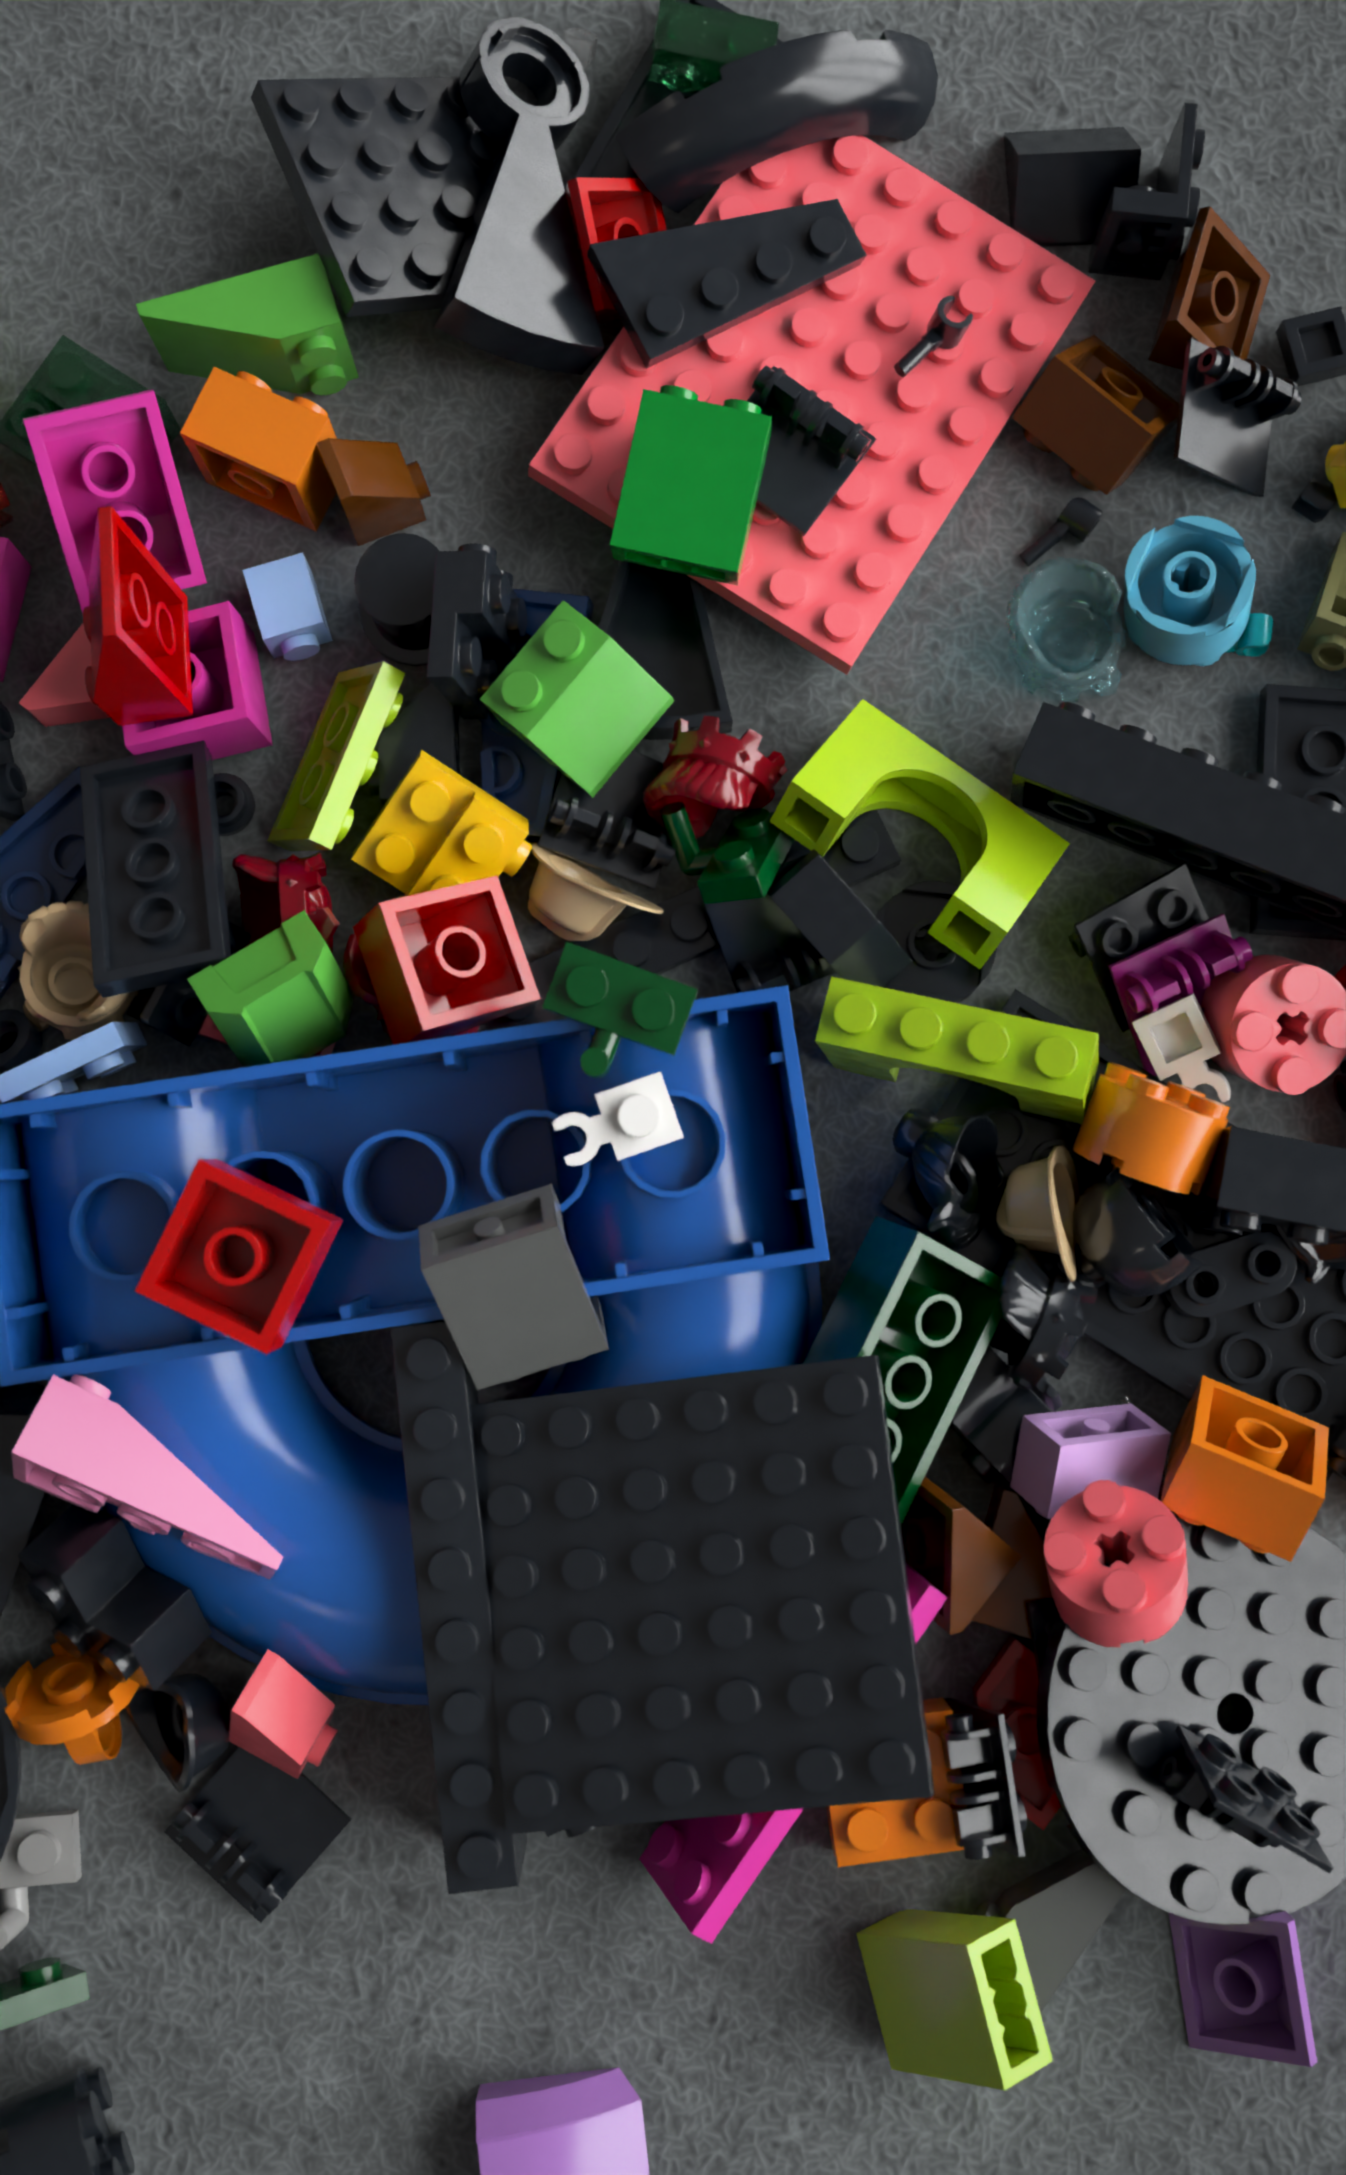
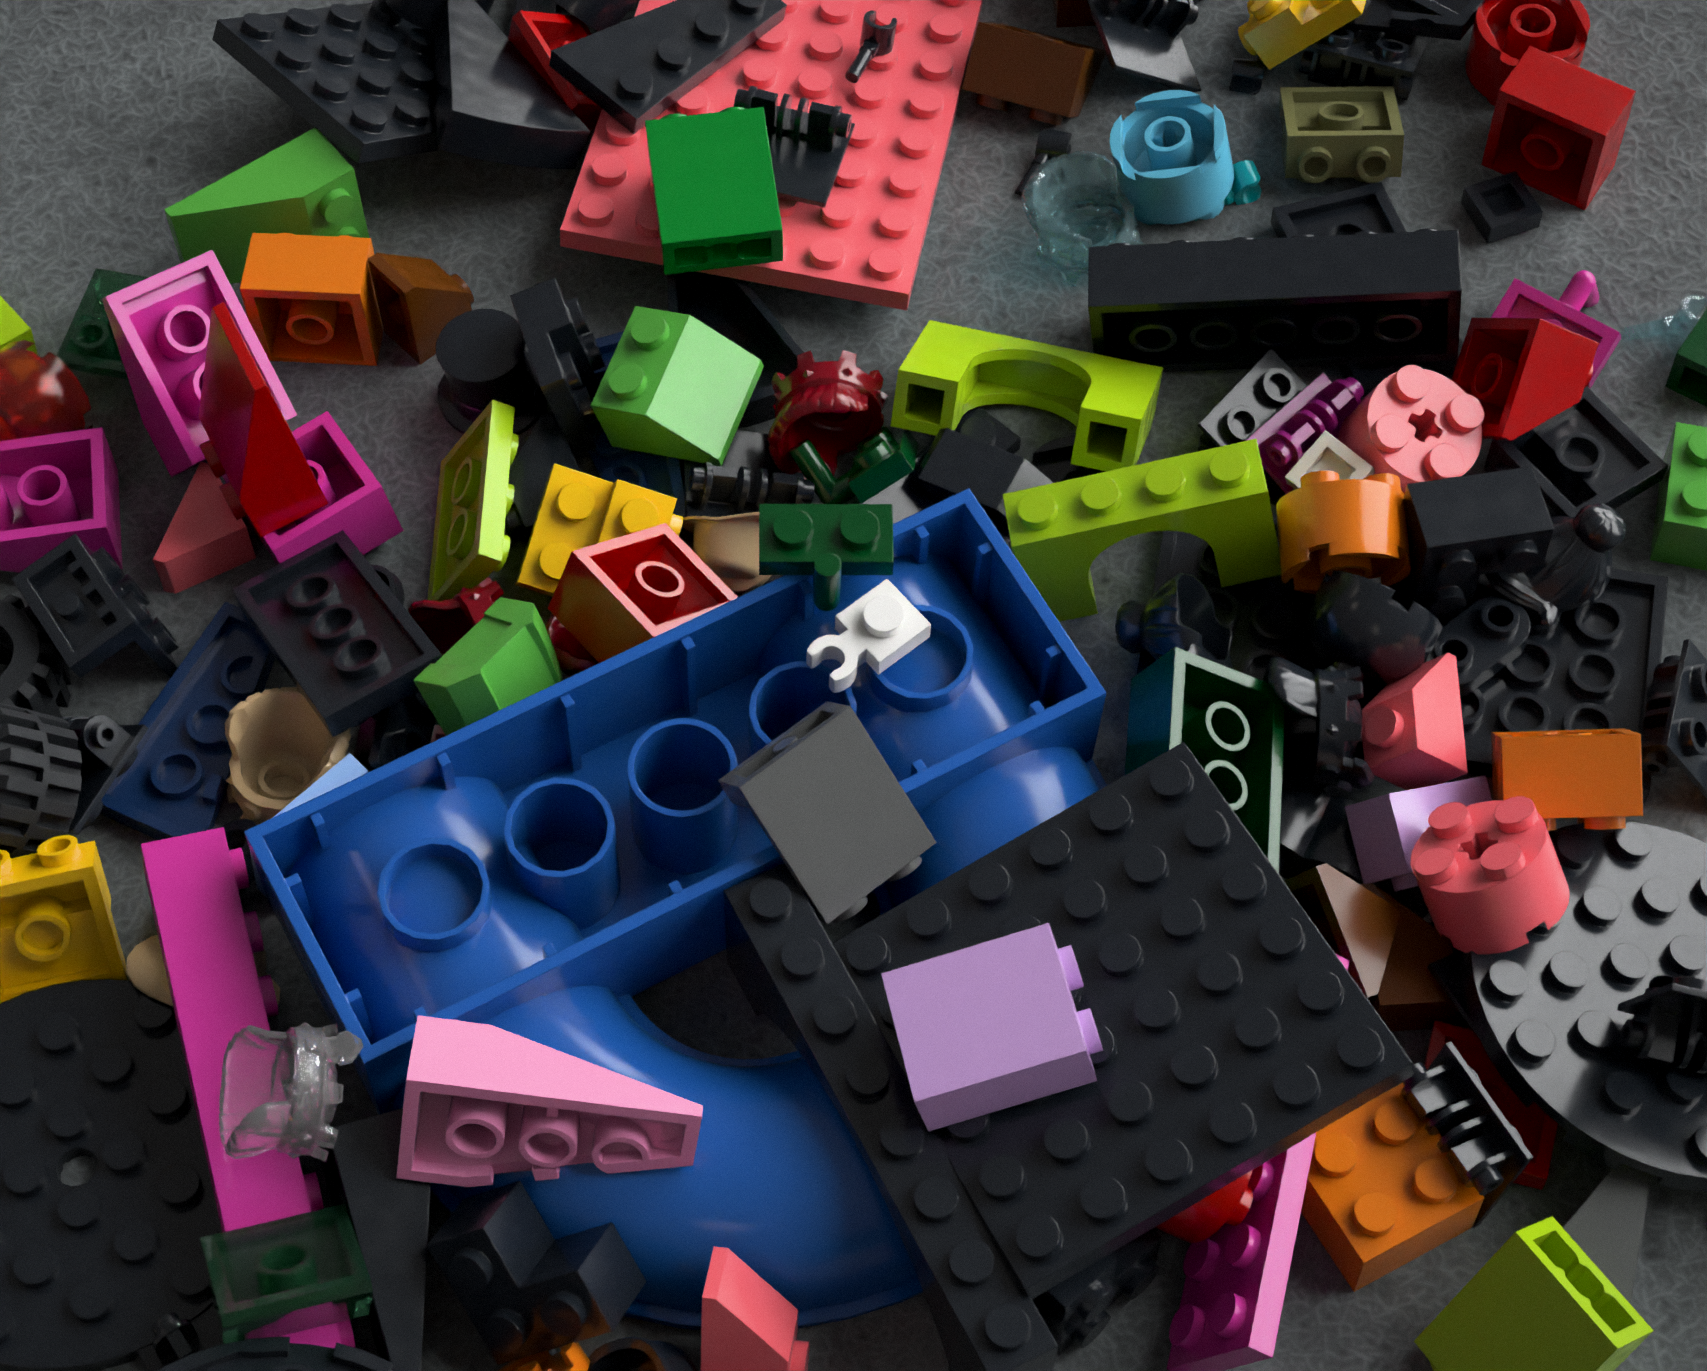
camera: 20 degrees left, 25 degrees down
(239, 1255) = (563, 838): red brick -> none
(288, 607) = (377, 419): light blue brick -> none
(568, 1592) = (991, 1026): none -> lavender brick
(1041, 1205) = (1276, 628): tan piece -> none
(1132, 1351) = (1417, 727): none -> coral slope

